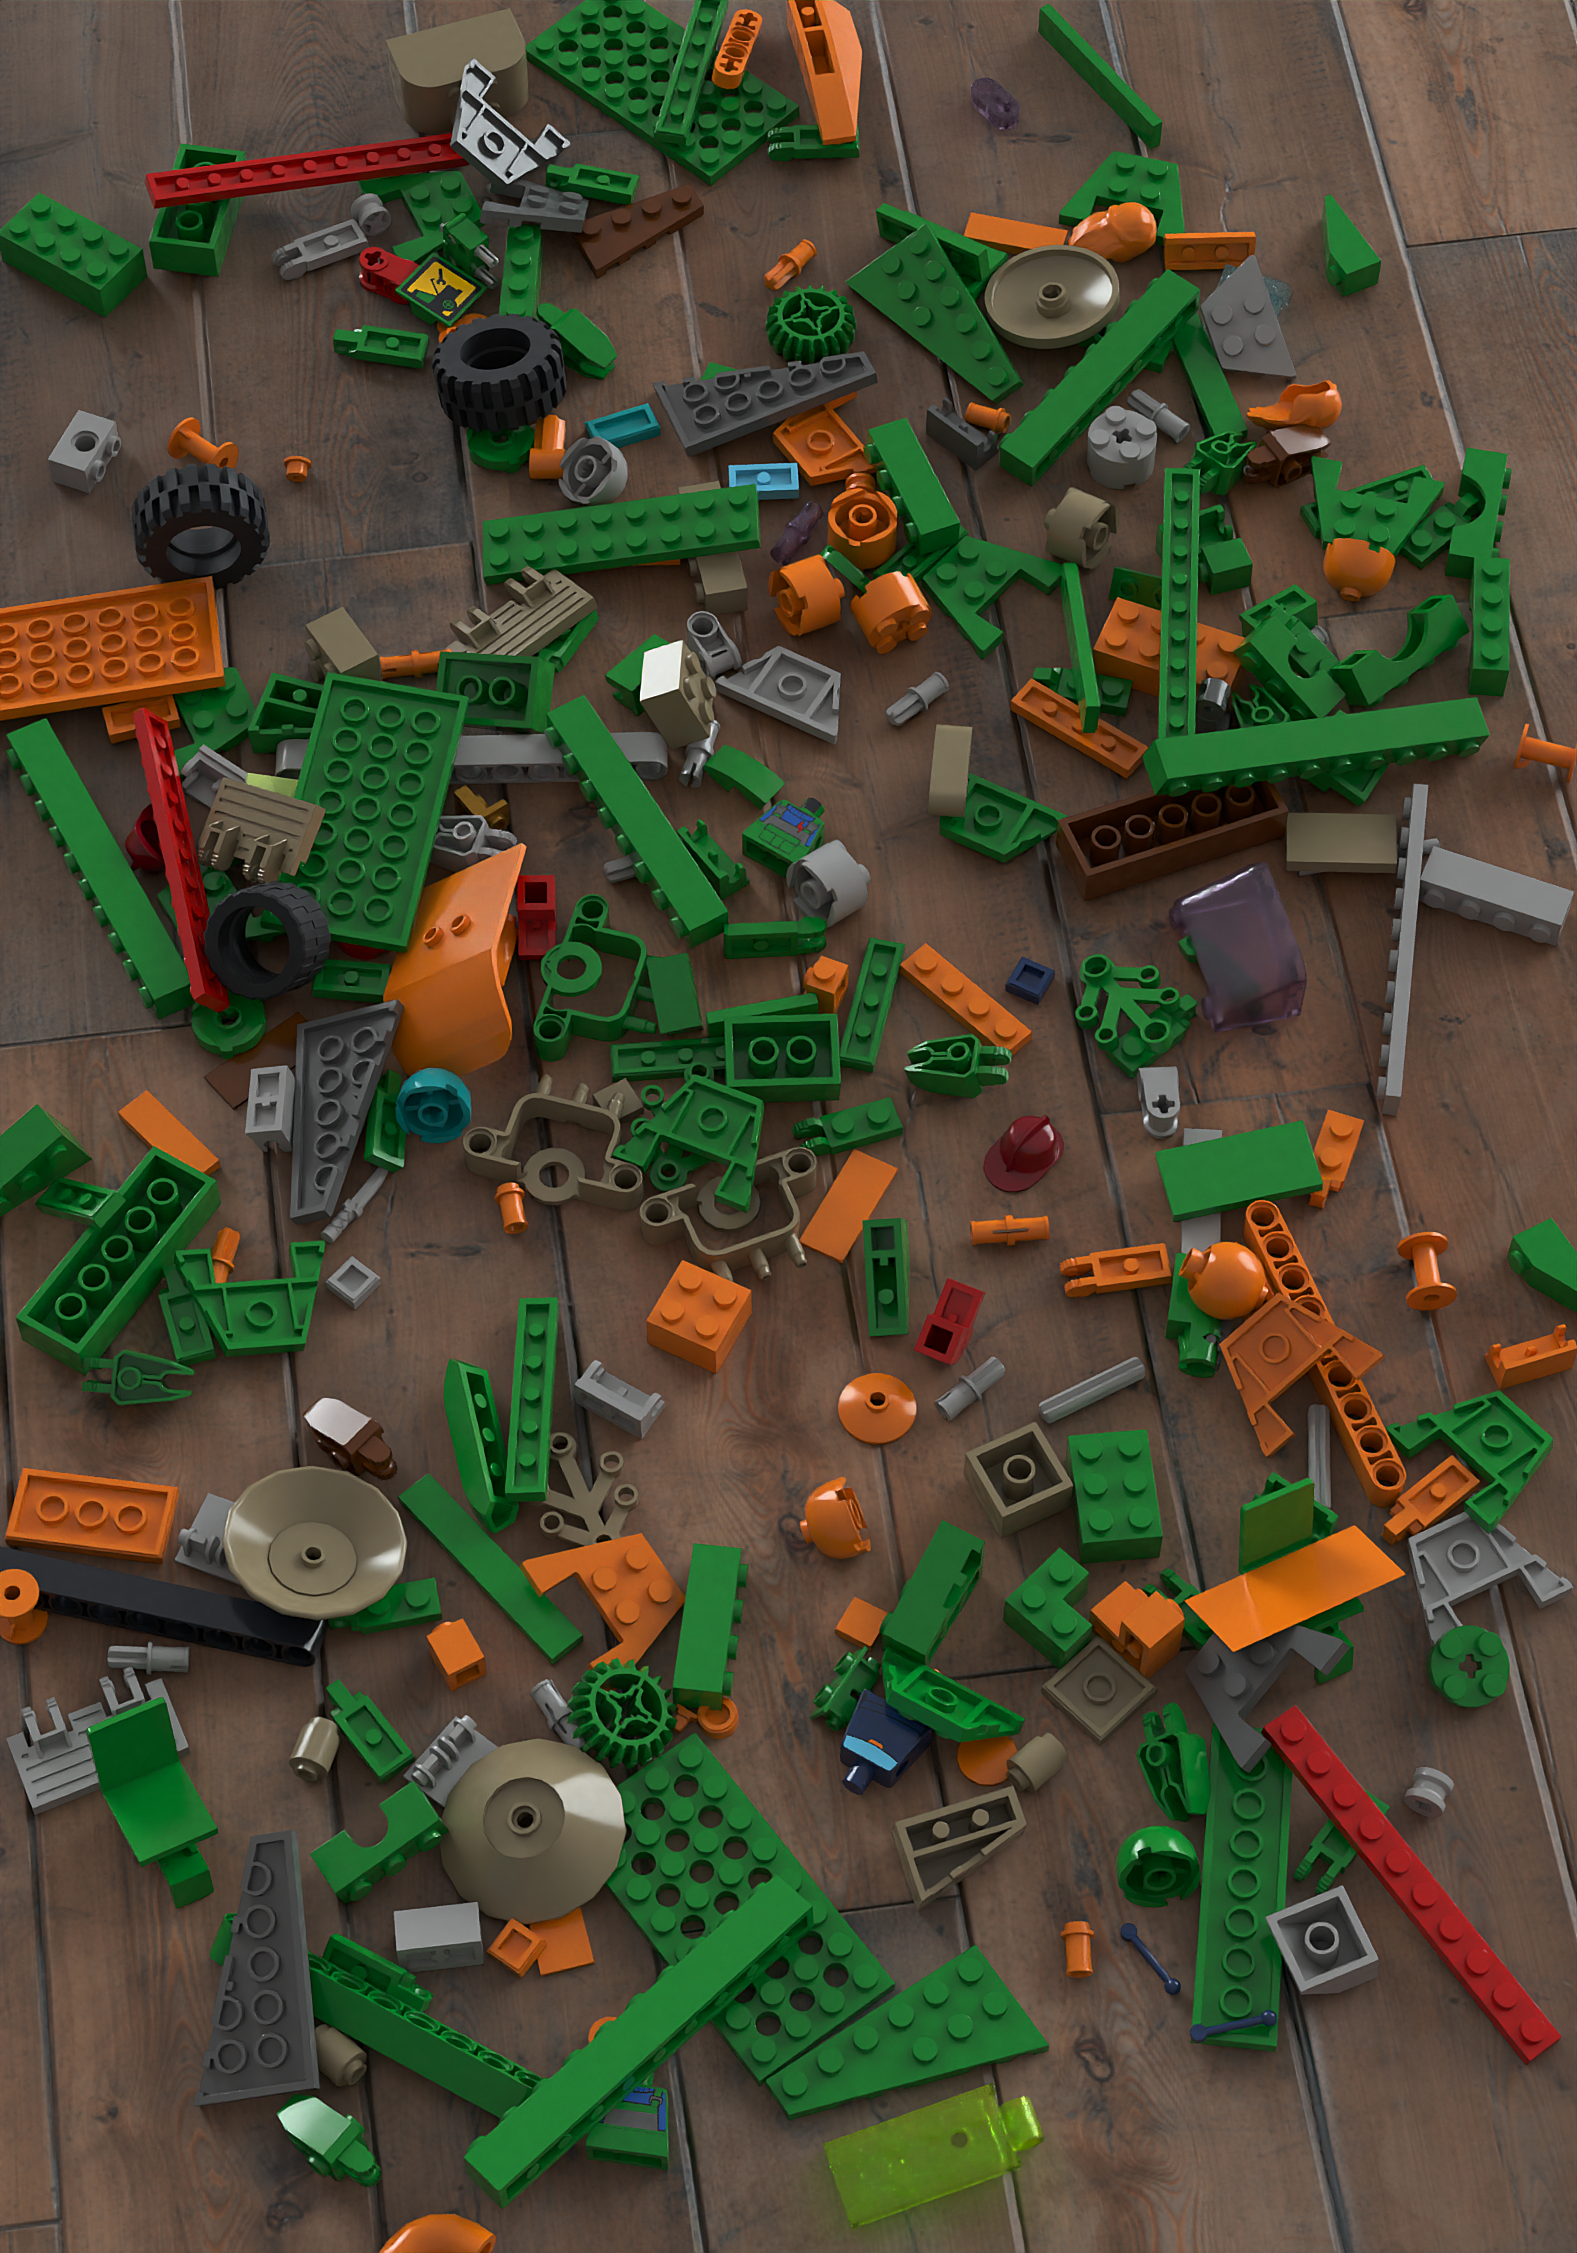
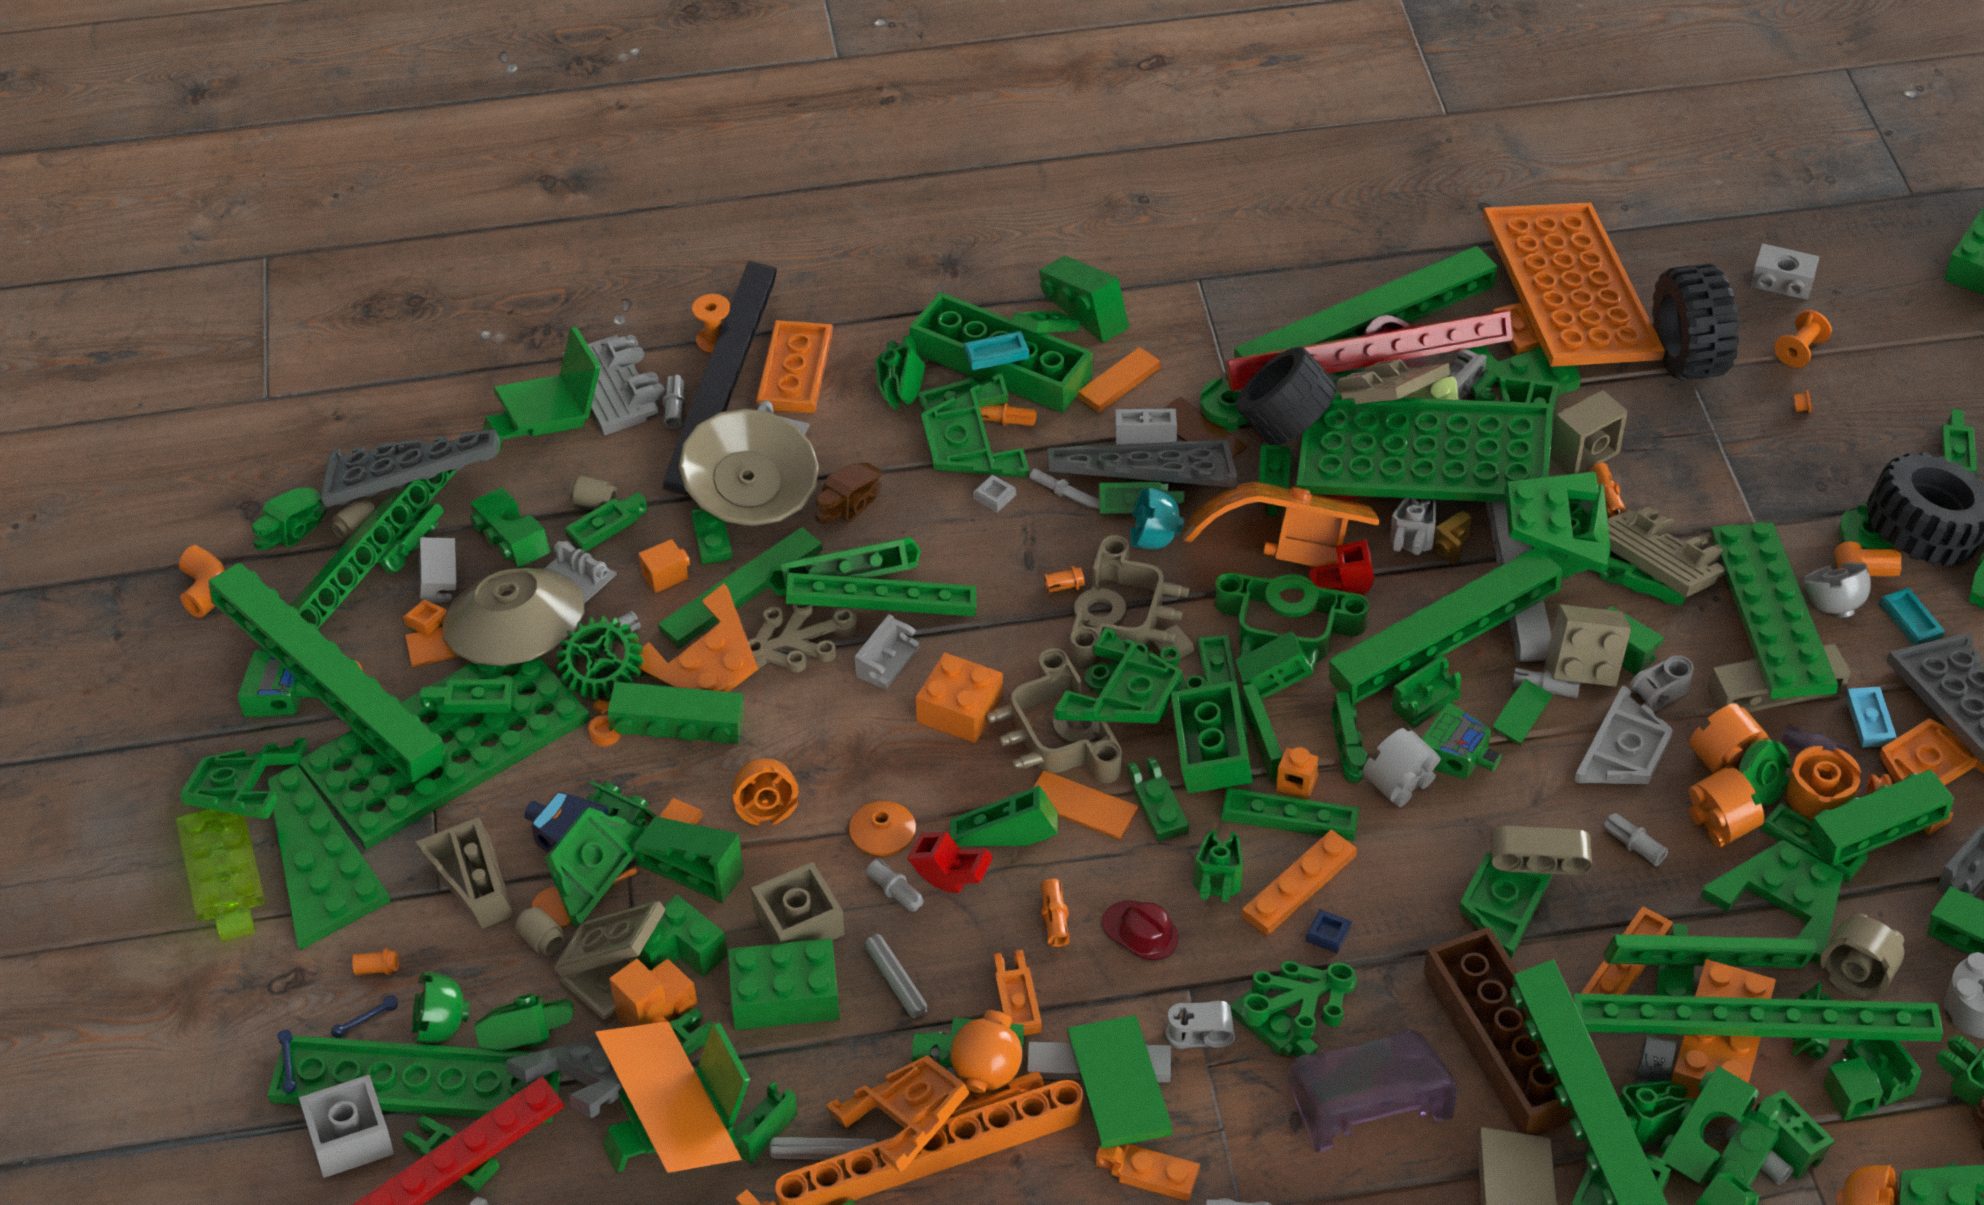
camera: 90 degrees right, 10 degrees down
(144, 1249) = (996, 350): none -> teal tile
(250, 763) = (1481, 388): none -> green arm
(506, 701) = (1541, 515): none -> green wing
(683, 1861) = (469, 696): none -> green hinge
(801, 2159) = (227, 779): none -> green wing
(1068, 1669) = (609, 939): none -> dark tan tile

